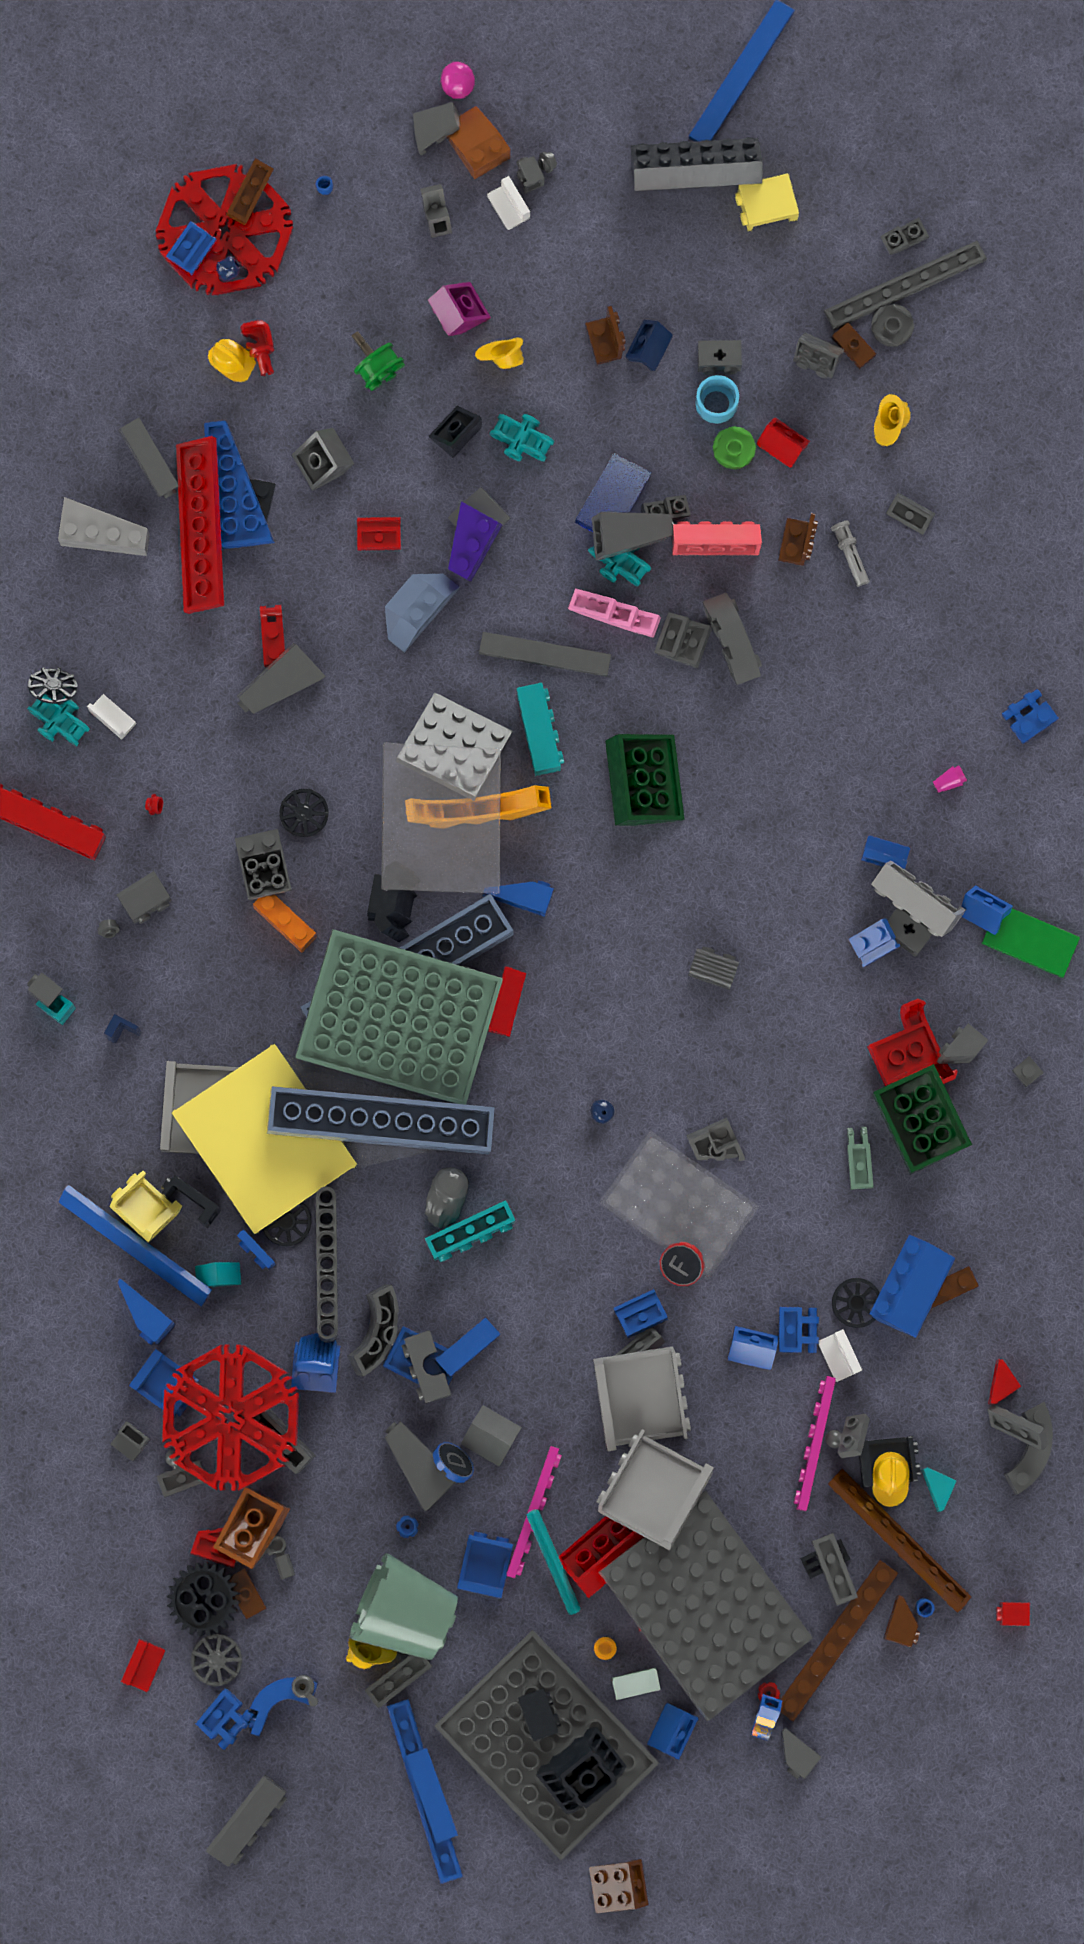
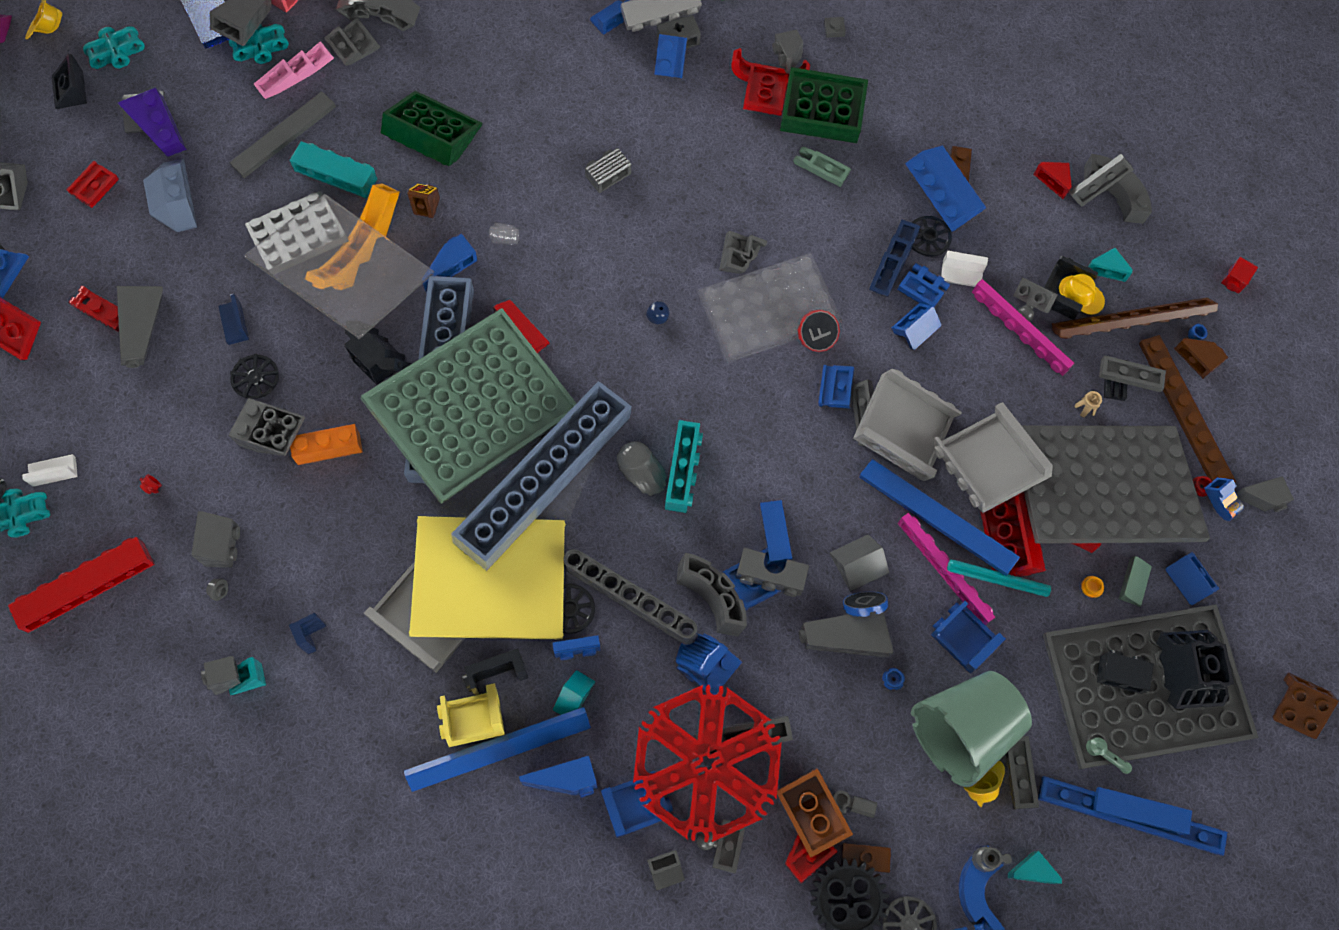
camera: 55 degrees left, 10 degrees down
(324, 1733) = (1035, 869): none -> teal slope
(339, 756) = (233, 321): none -> dark blue panel
(459, 1728) = (1098, 747): none -> sand green piece
(566, 829) = (424, 200): none -> reddish brown slope
(574, 1477) = (939, 517): none -> blue tile
(583, 923) = (504, 234): none -> clear brick
(779, 1547) = (1091, 401): none -> tan piece
(807, 1286) = (894, 258): none -> dark blue slope

